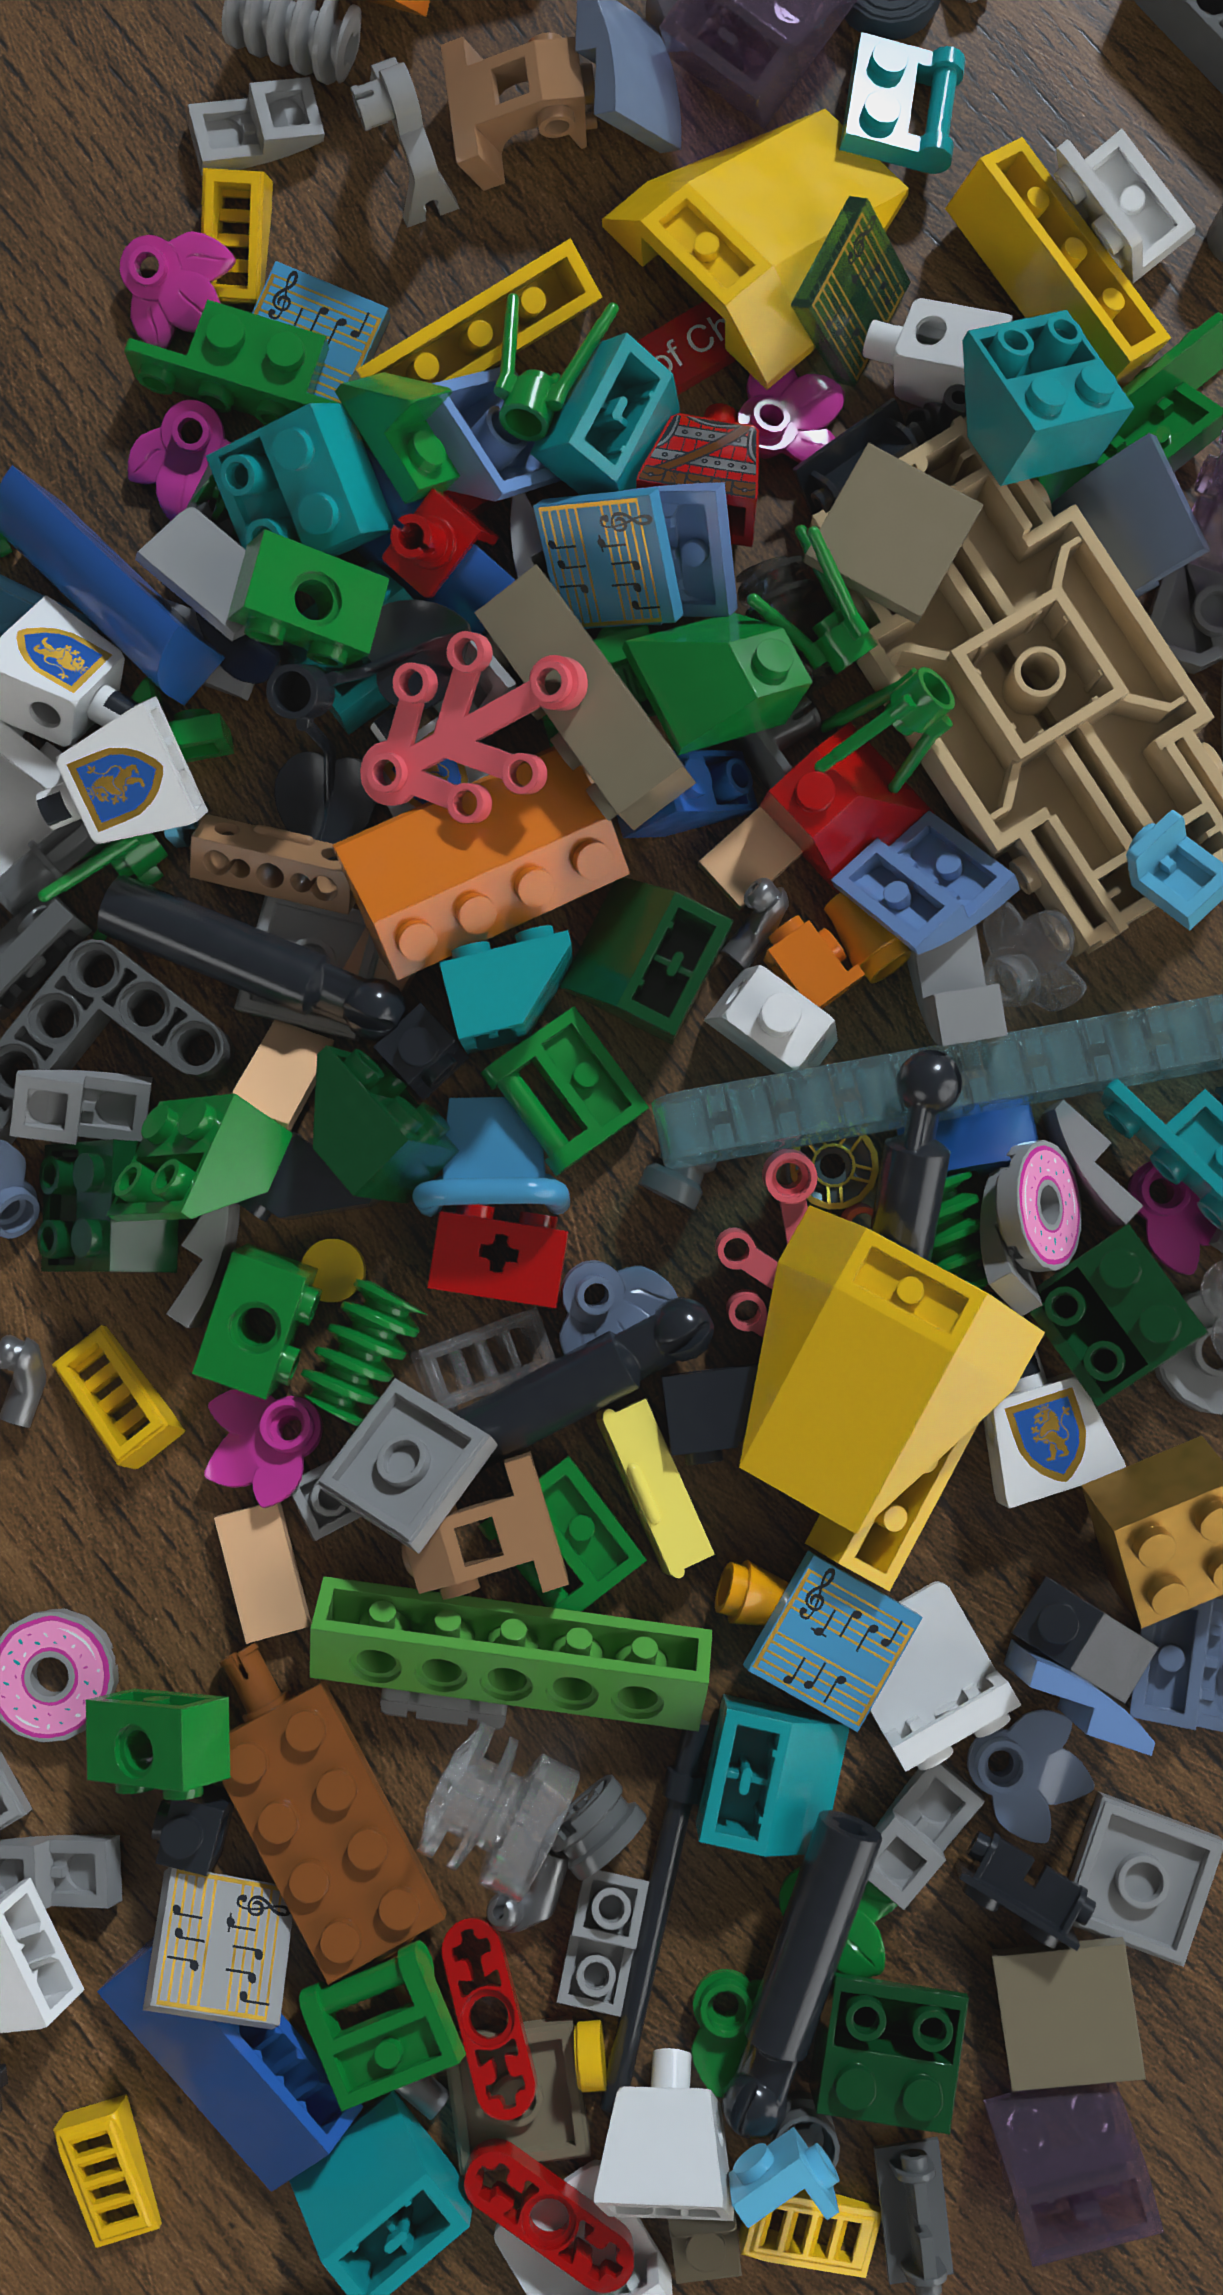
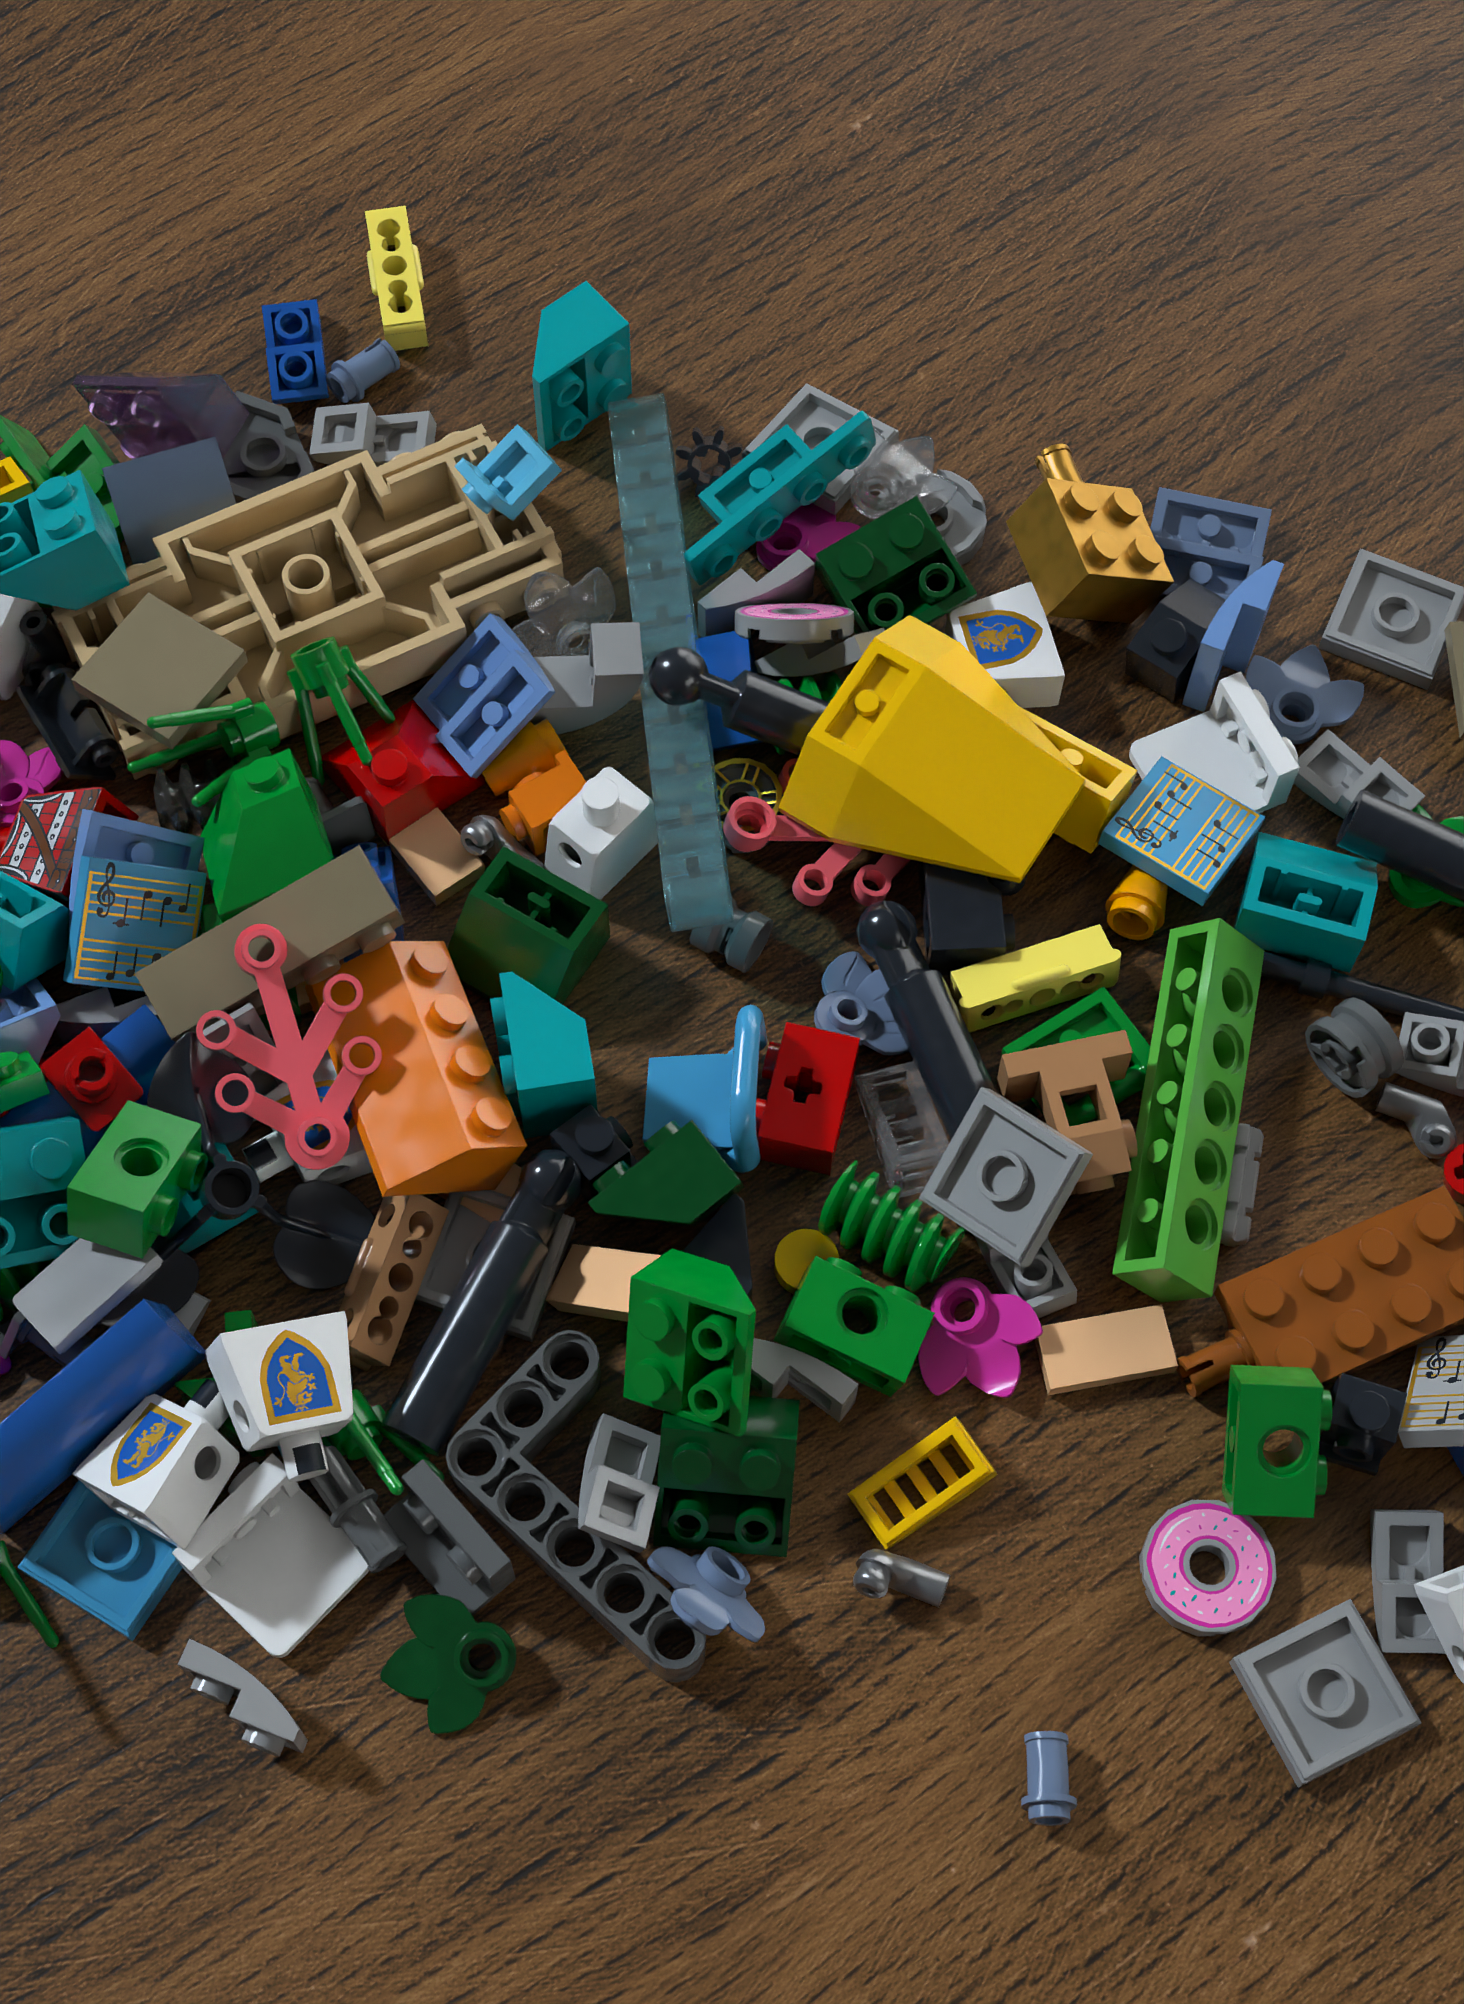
camera: 85 degrees left, 20 degrees down
(498, 1812) = (1341, 1122): clear wheel -> none
(582, 1079) = (640, 1010): green plate -> none
(1046, 1906) = (1419, 681): black hinge -> none

